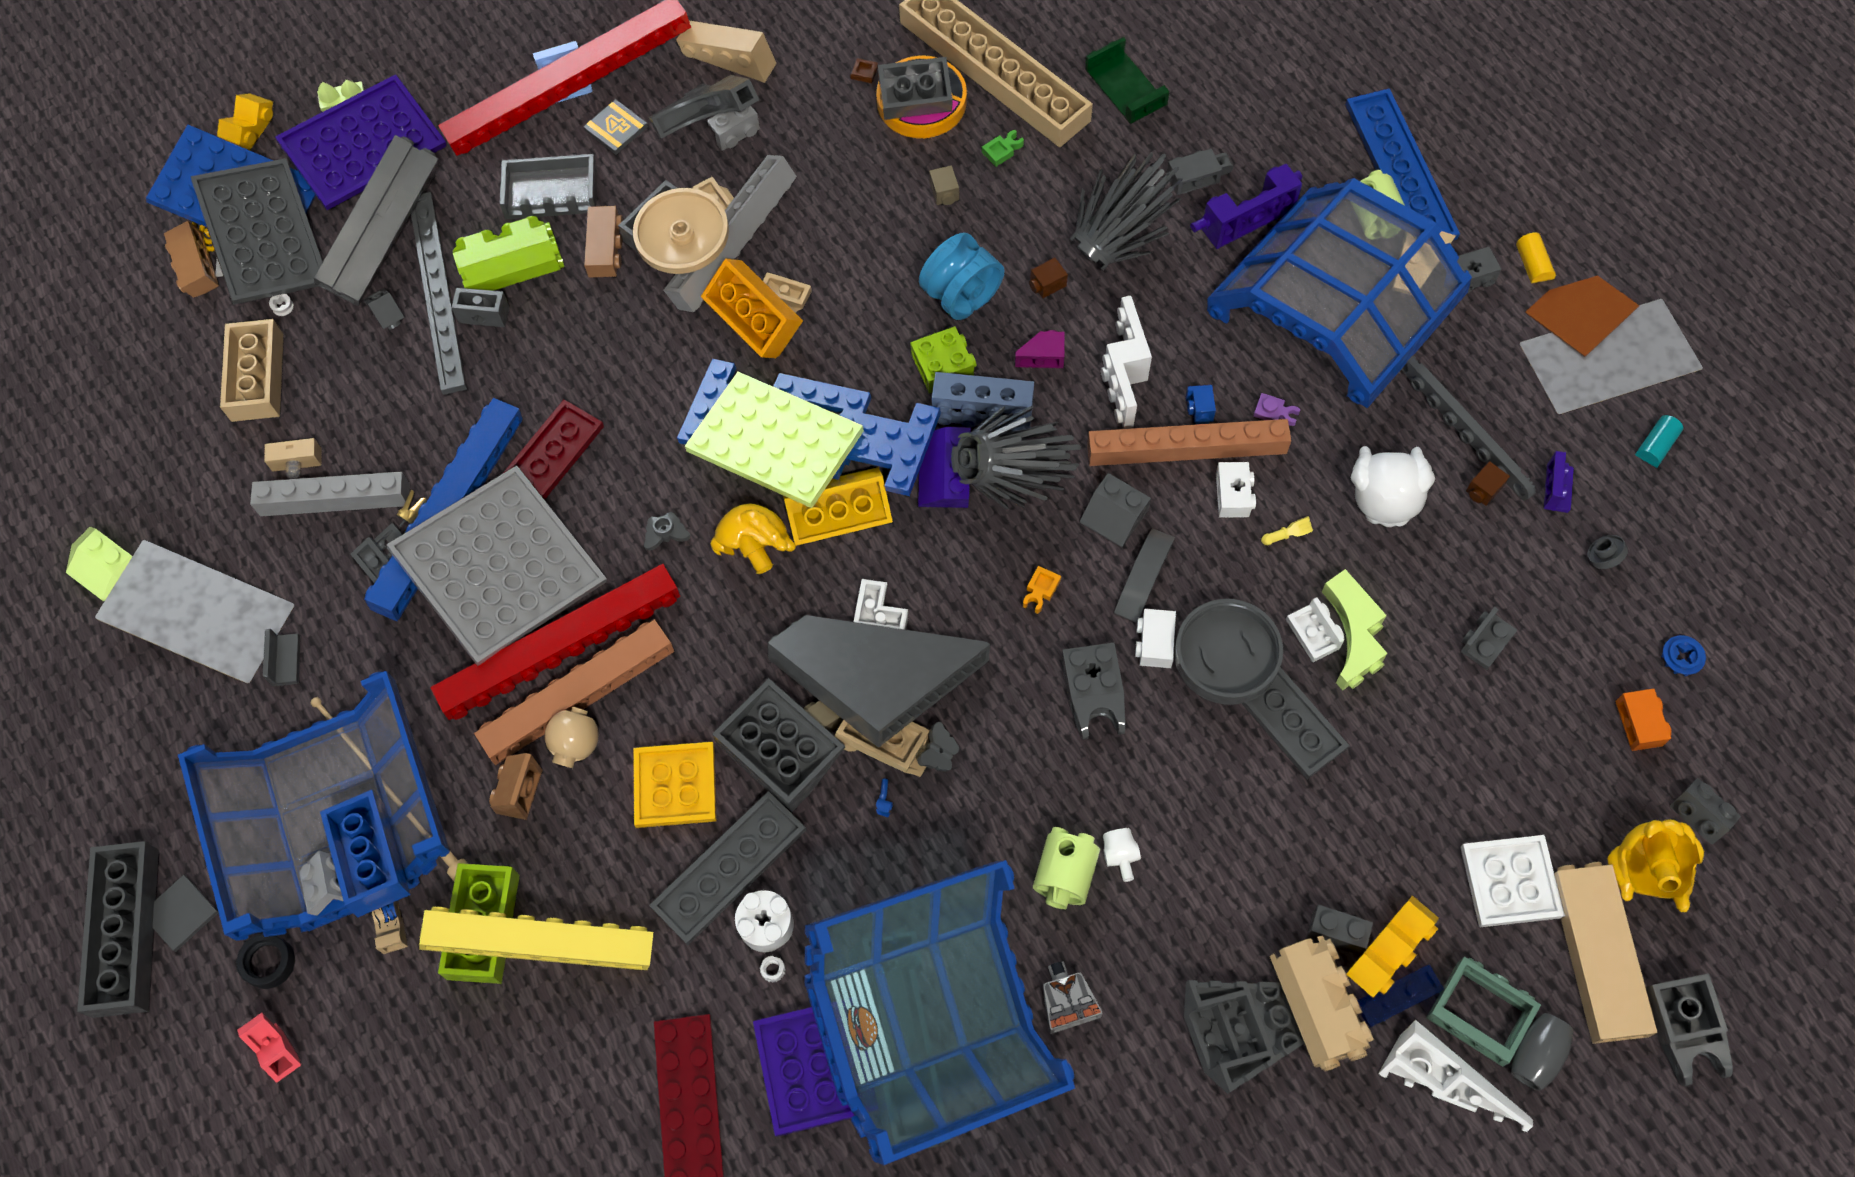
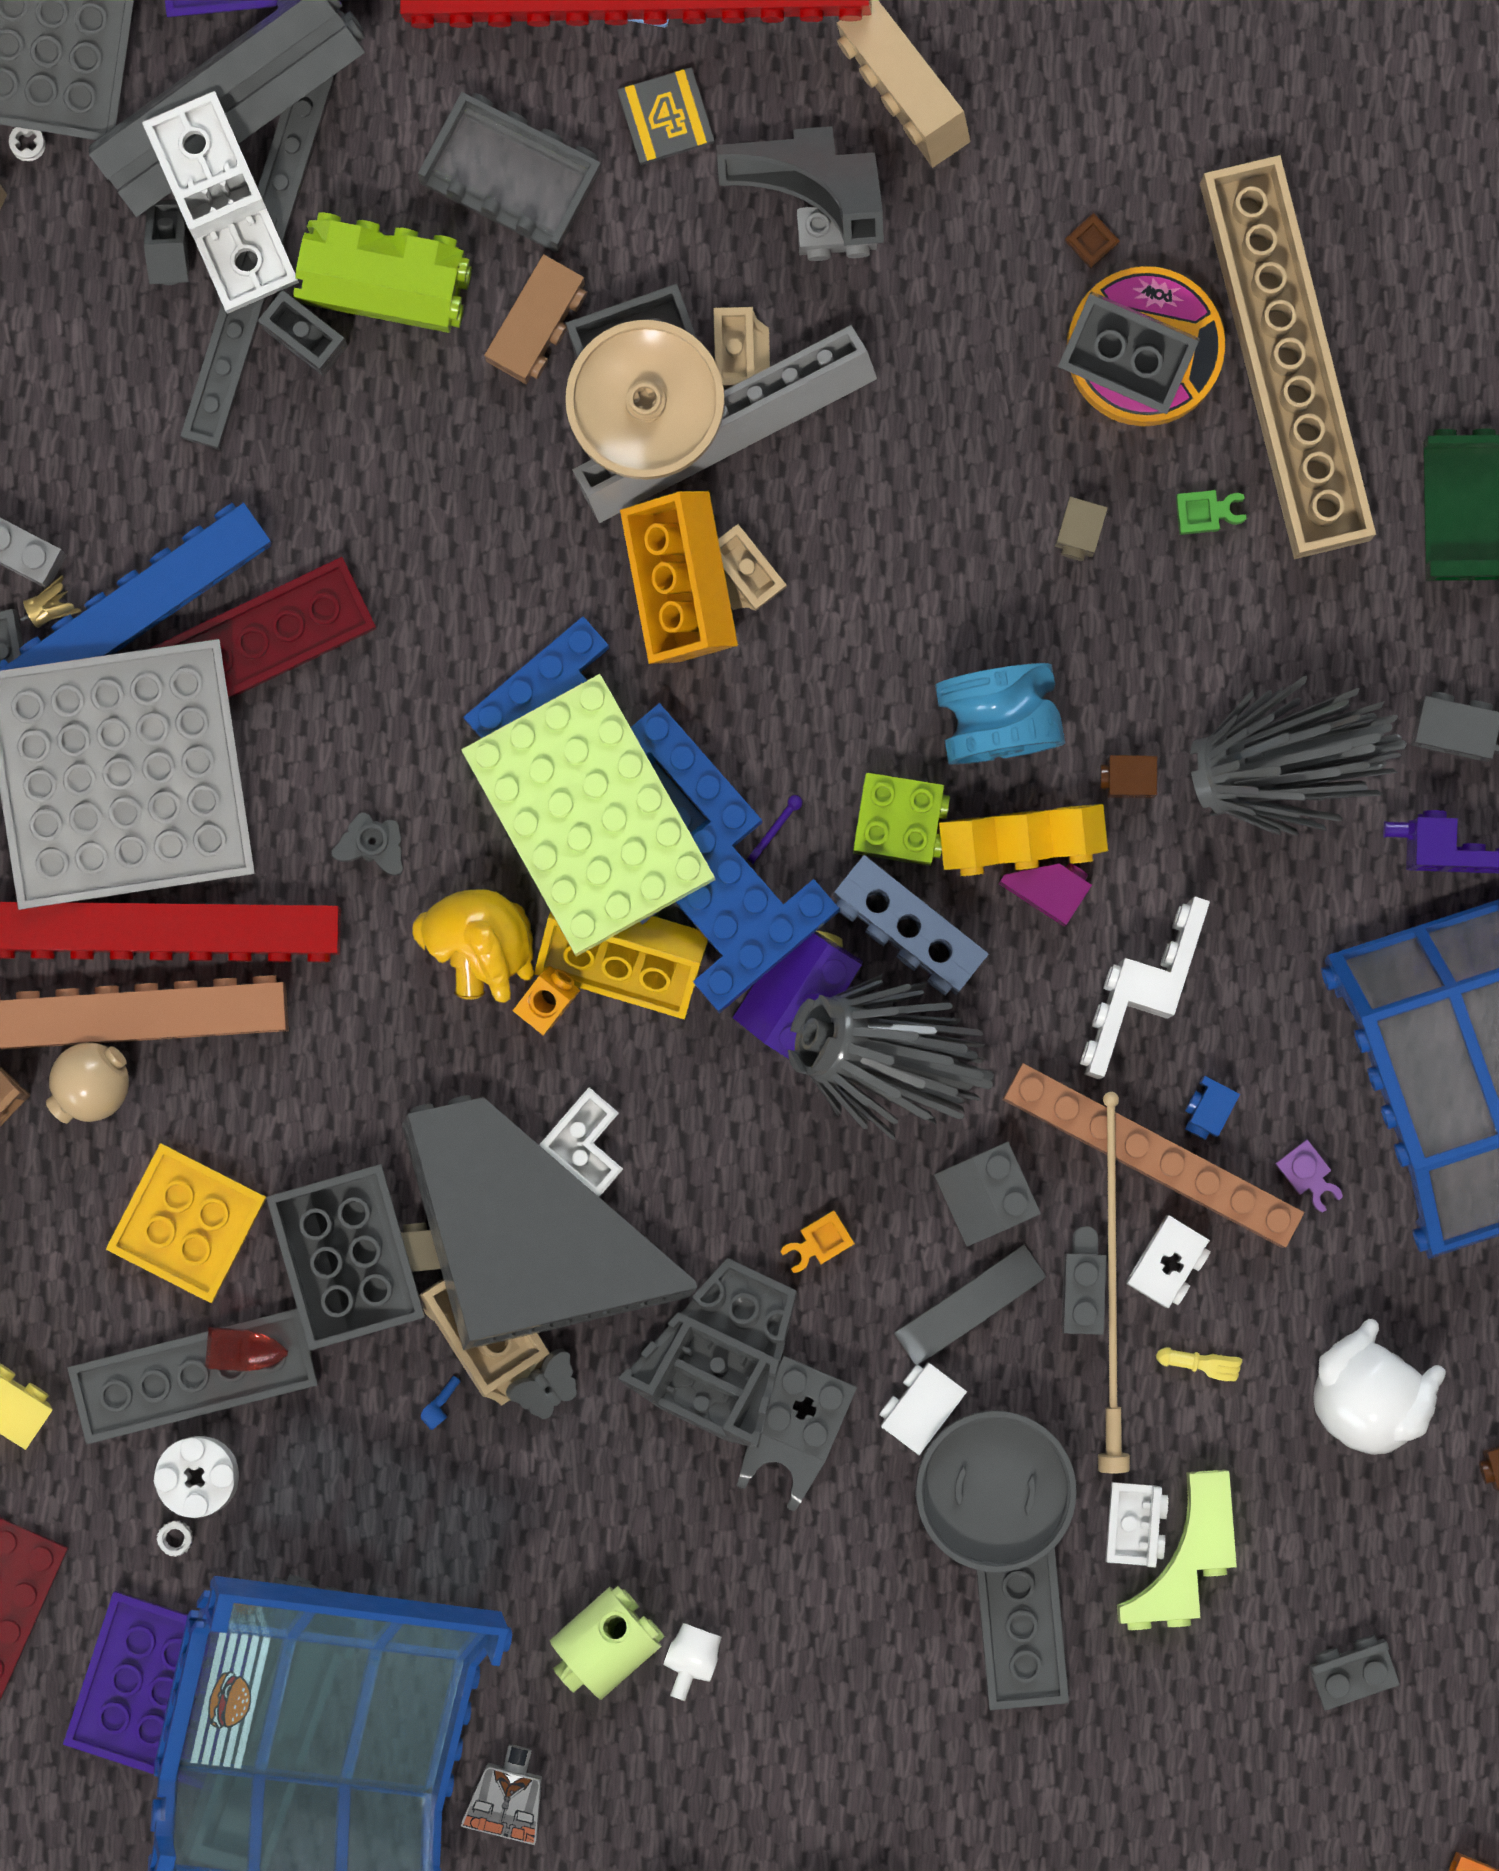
camera: 25 degrees right, 20 degrees up
(399, 263) = (220, 202): none -> white bracket
(747, 830) = (241, 1350): none -> clear red plate
(802, 556) = (536, 1010): none -> light orange brick
(881, 387) = (794, 803): none -> dark purple hinge
(1012, 331) = (1023, 838): none -> yellow brick
(1027, 676) = (720, 1355): none -> dark grey wedge
(1199, 526) = (1083, 1285): none -> dark grey brick
(1277, 604) = (1113, 1460): none -> tan piece

